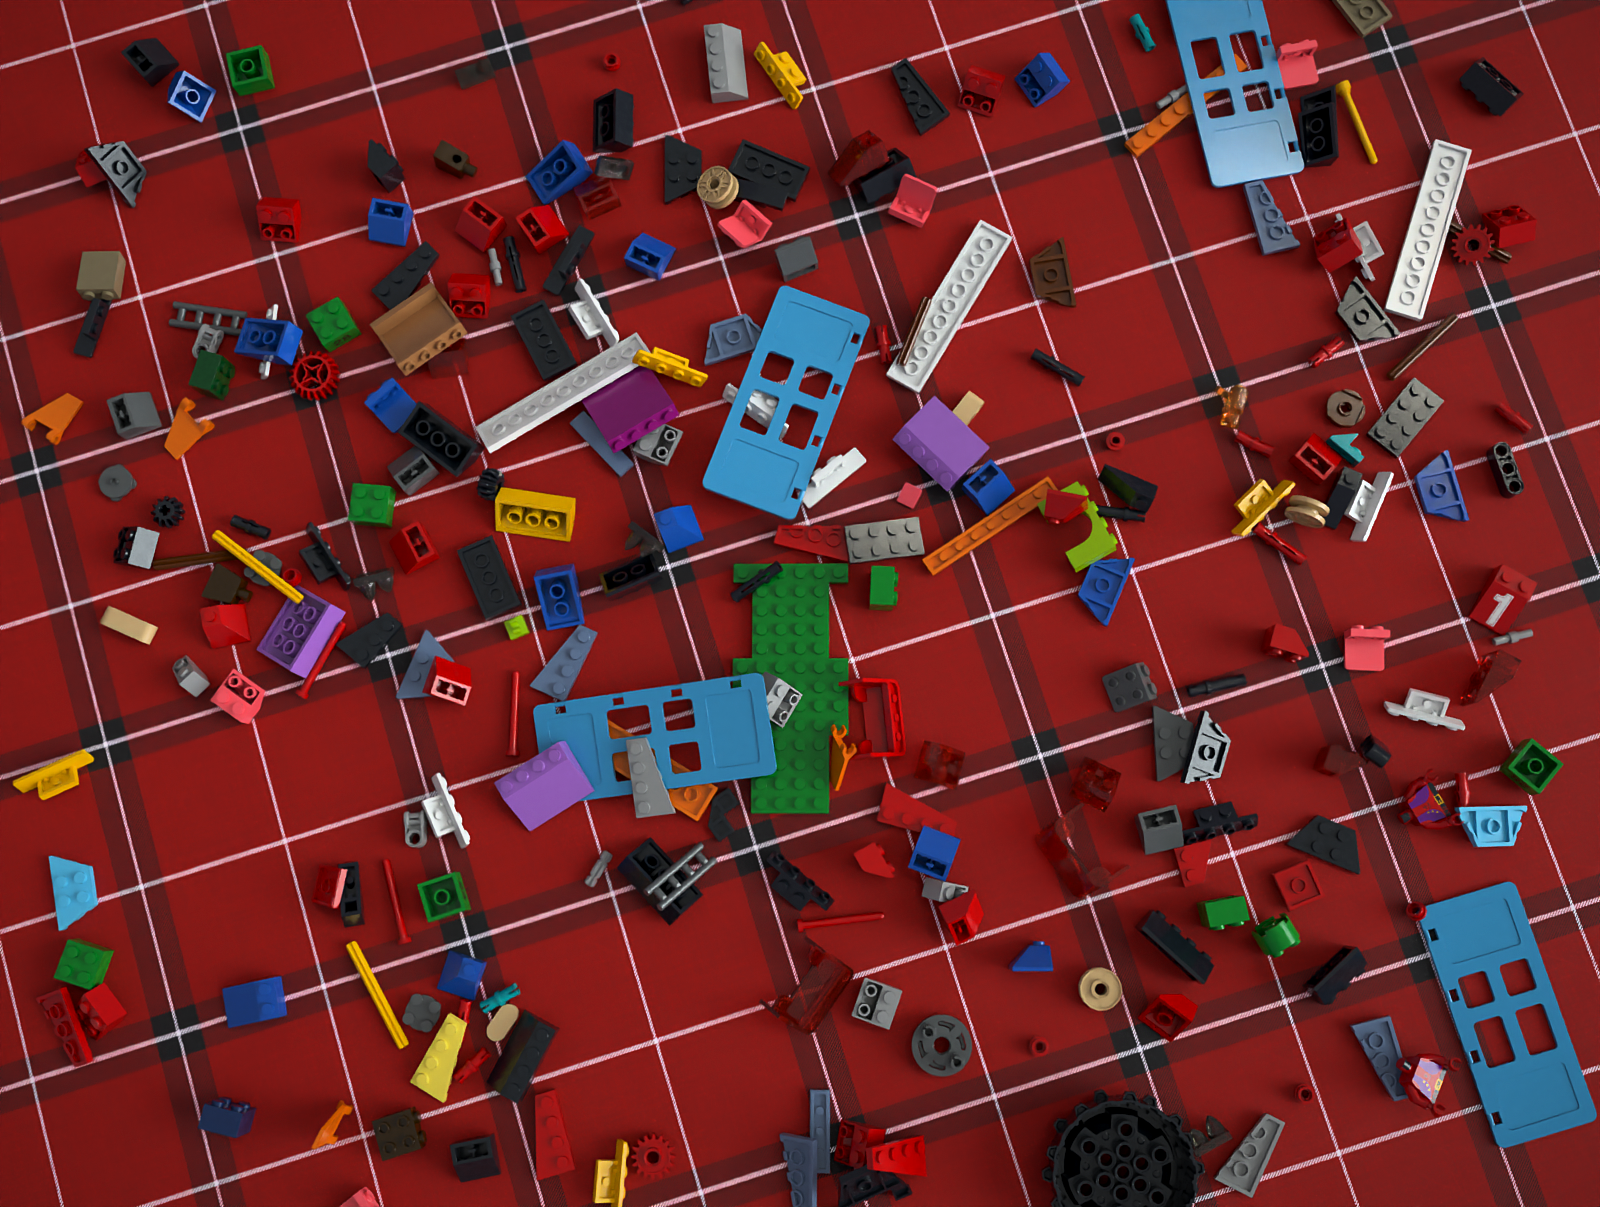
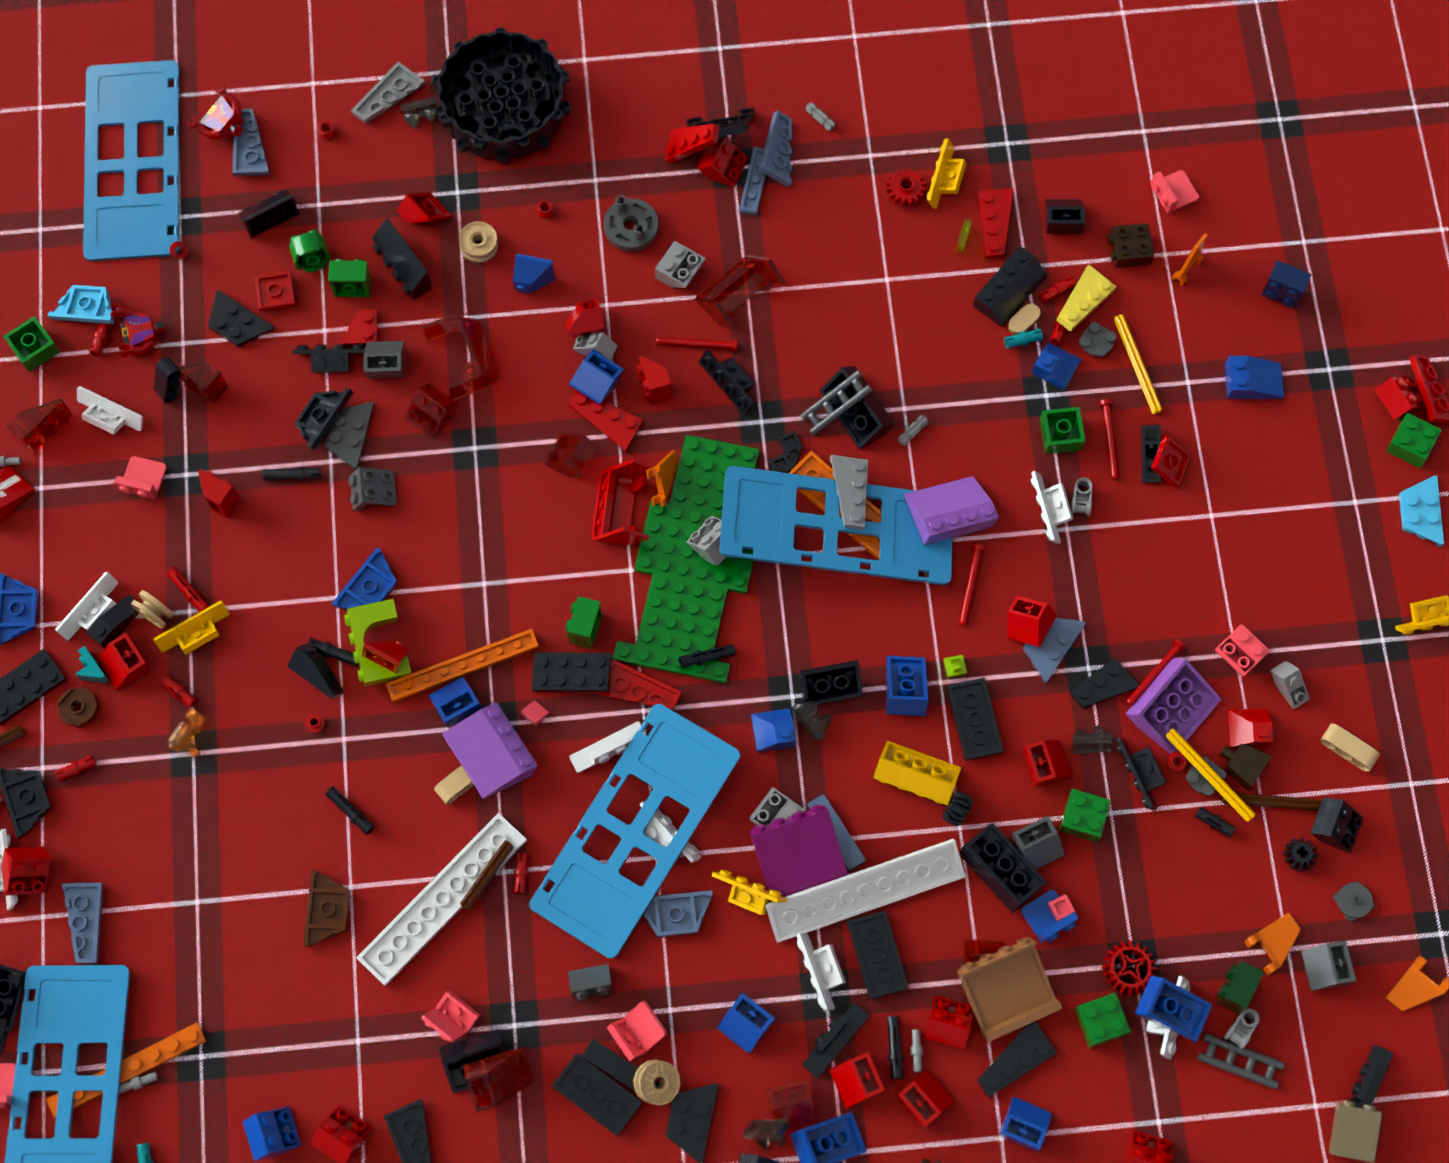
camera: 175 degrees left, 10 degrees down
(383, 415) = (1060, 907): none -> coral tile
(562, 670) = (915, 616): sand blue wing -> none
(582, 1108) = (963, 236): none -> clear neon green tile

